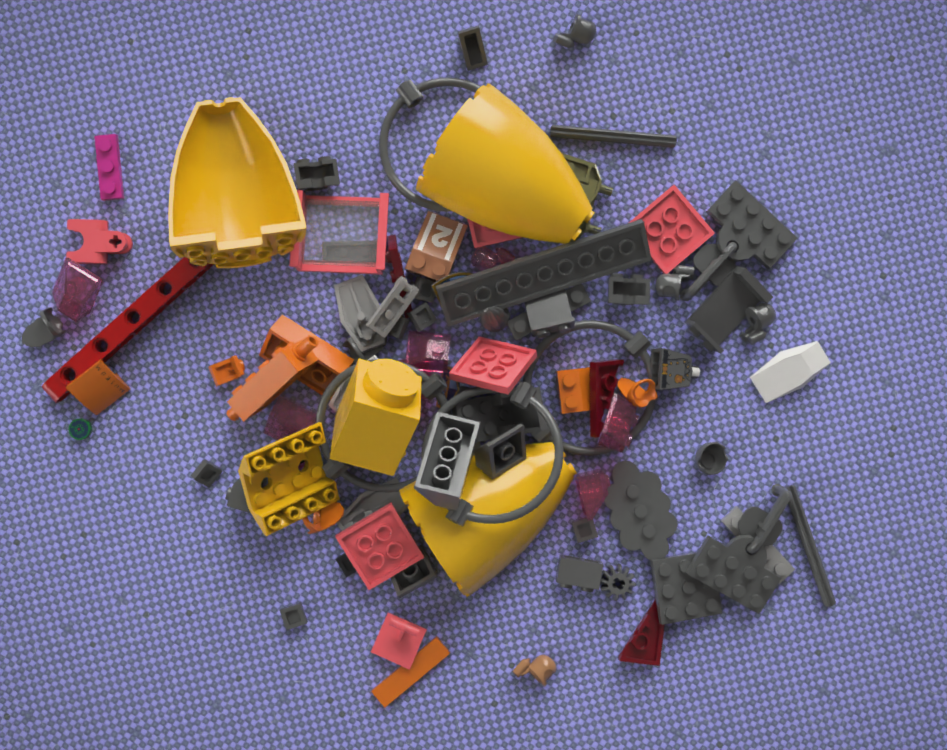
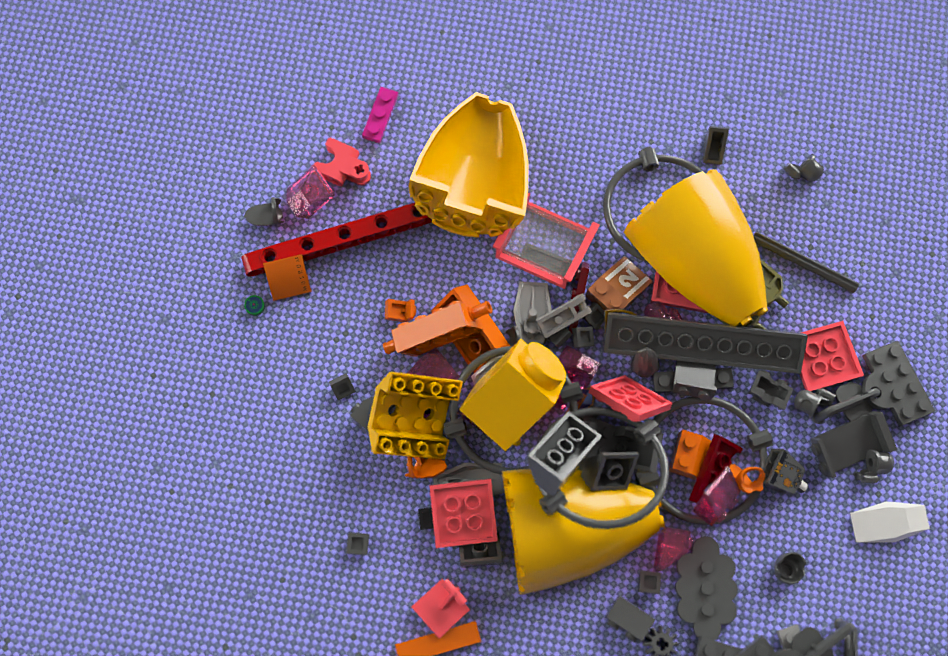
camera: 25 degrees right, 15 degrees down
(316, 175) = (546, 189): dark grey cylinder -> none

